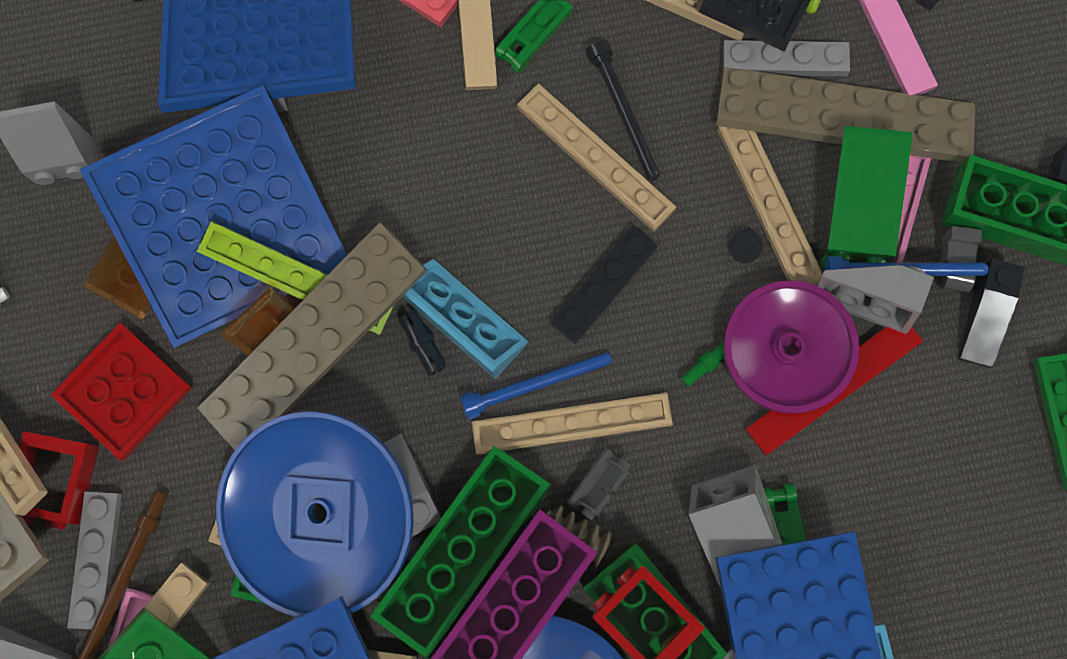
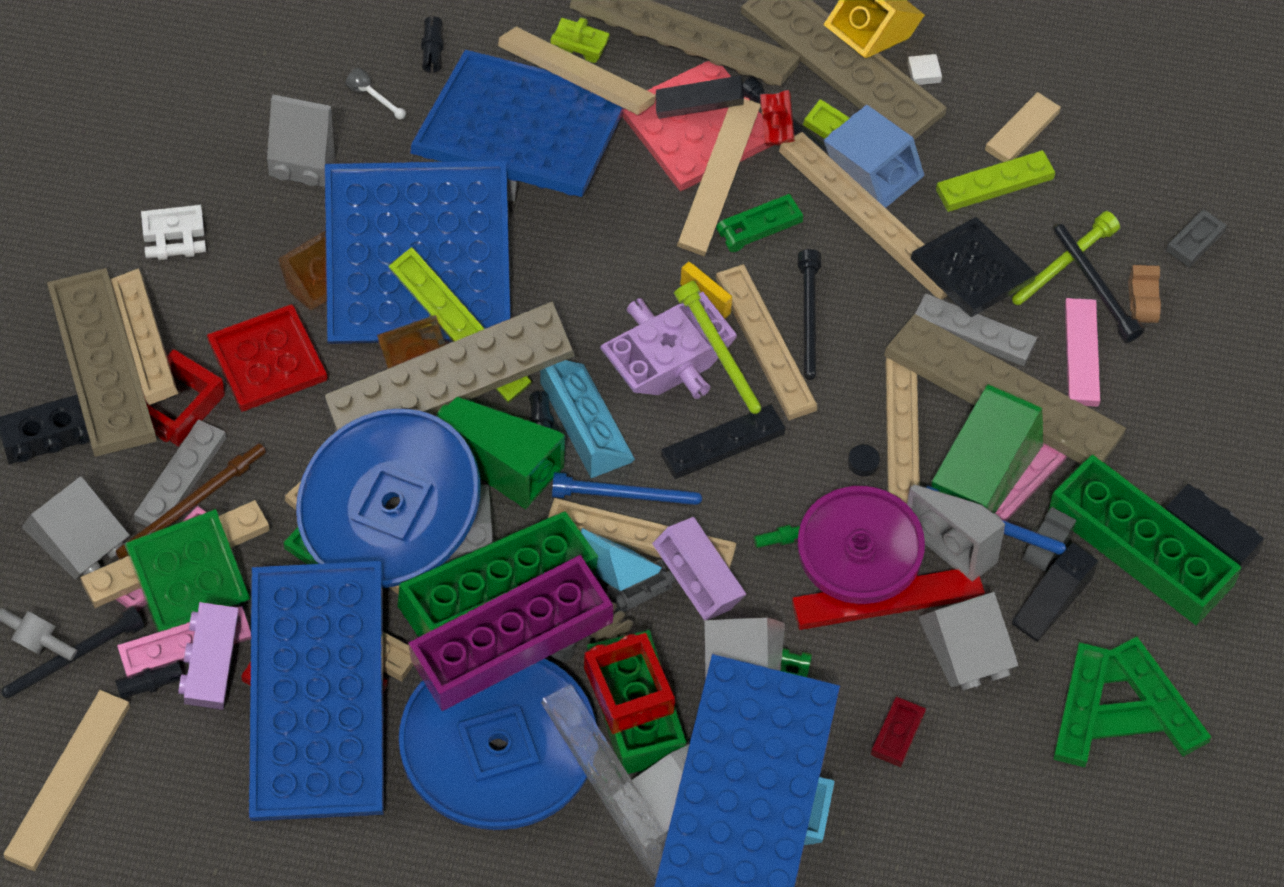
camera: 15 degrees right, 20 degrees down
(78, 43) = (360, 82): none -> hinge
(400, 399) = (509, 451): none -> green slope
(513, 156) = (689, 296): none -> lime piece
(516, 128) = (717, 295): none -> yellow tile
(524, 182) = (666, 348): none -> lavender slope
(571, 472) = (619, 564): none -> medium azure slope
(650, 446) = (699, 568): none -> lavender brick
(911, 530) = (898, 731): none -> dark red plate
(935, 401) = (970, 641): none -> light grey slope

